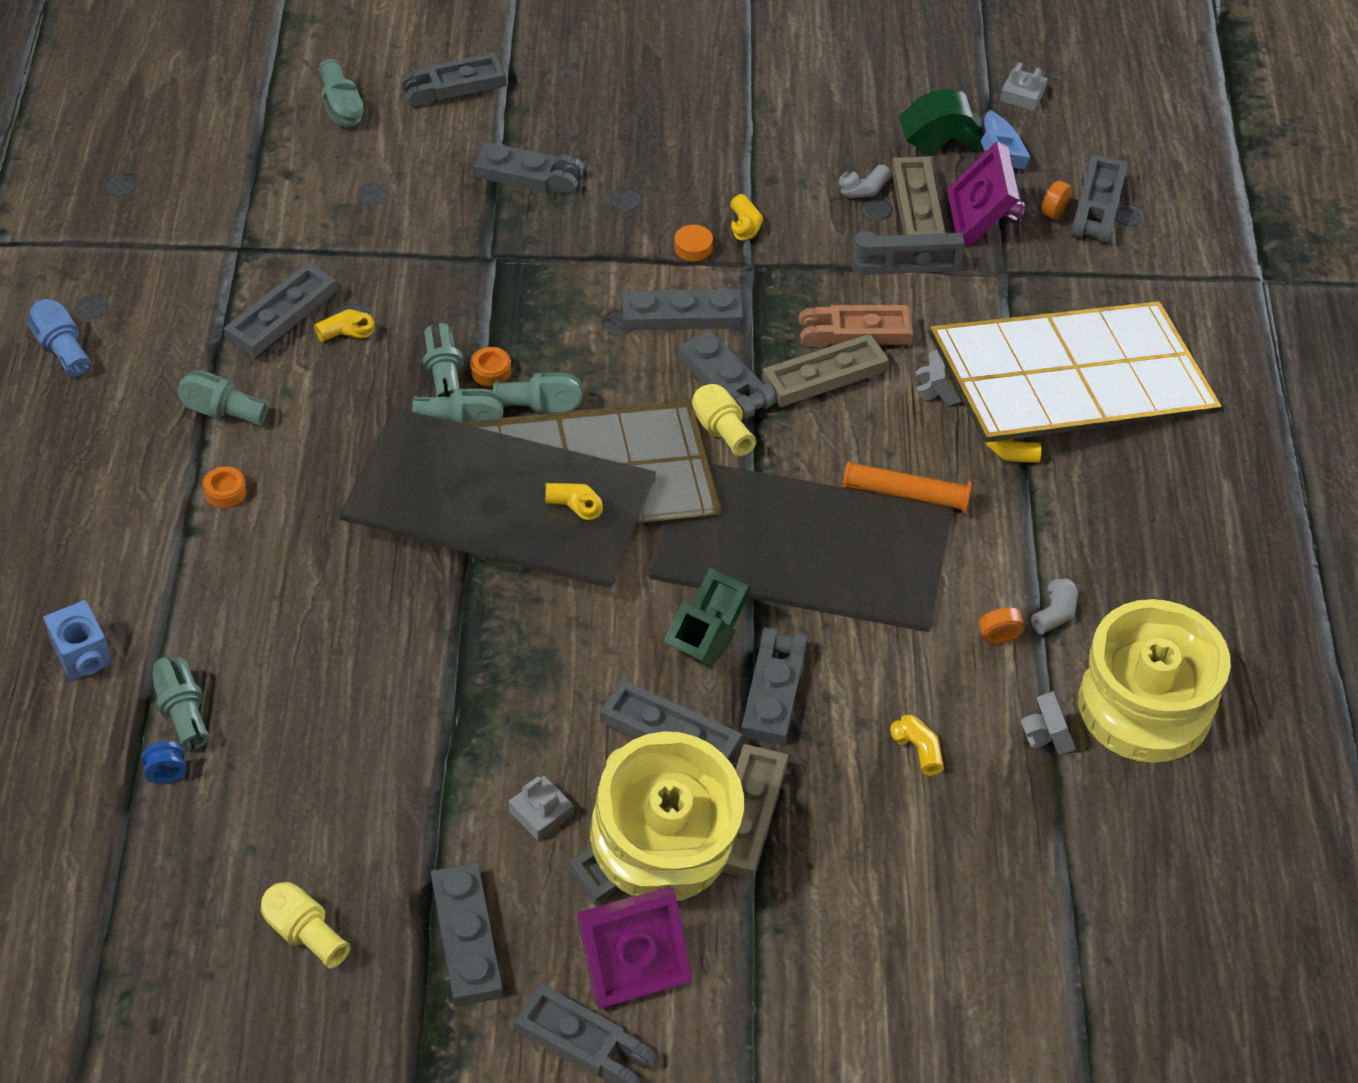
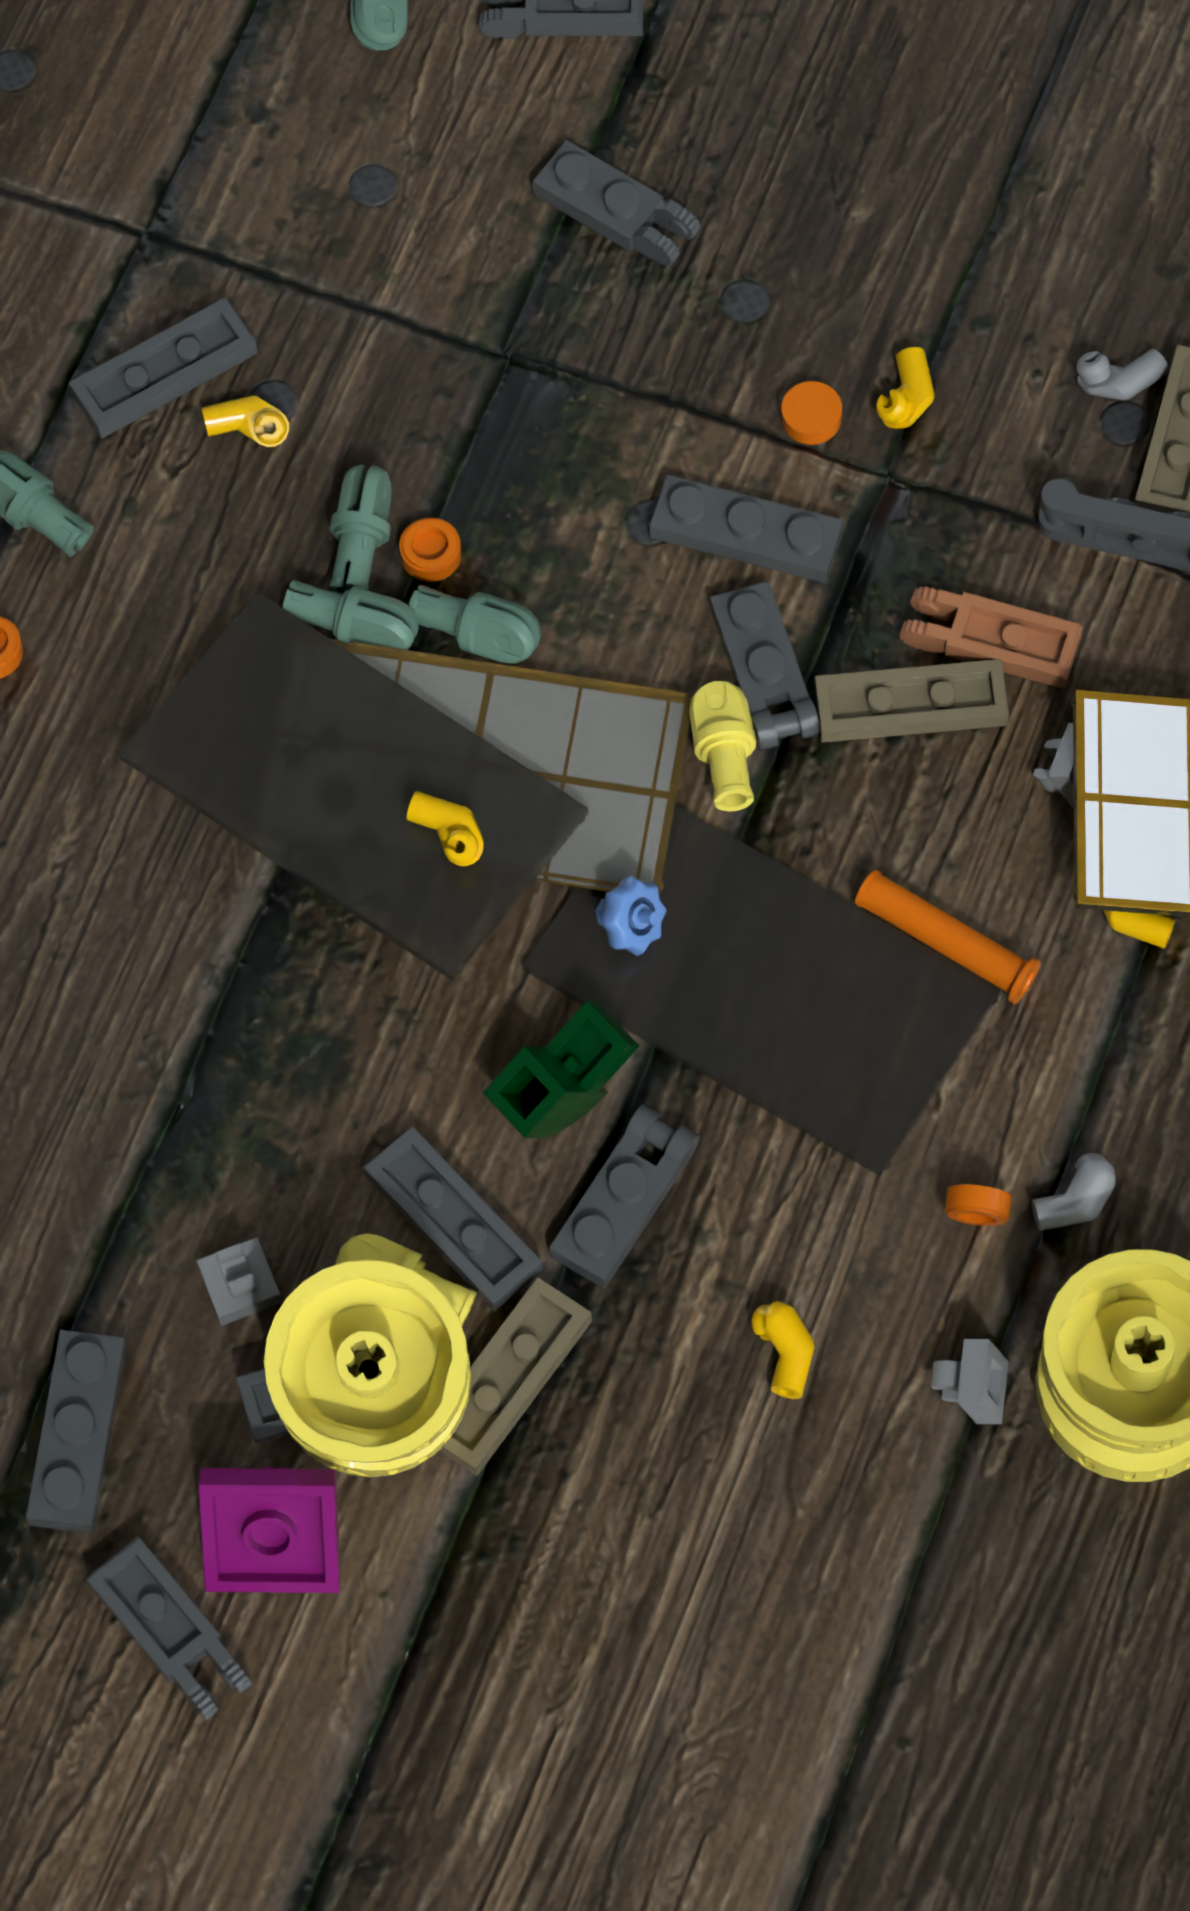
camera: 25 degrees right, 15 degrees up
(709, 522) = (632, 915): none -> medium blue piece

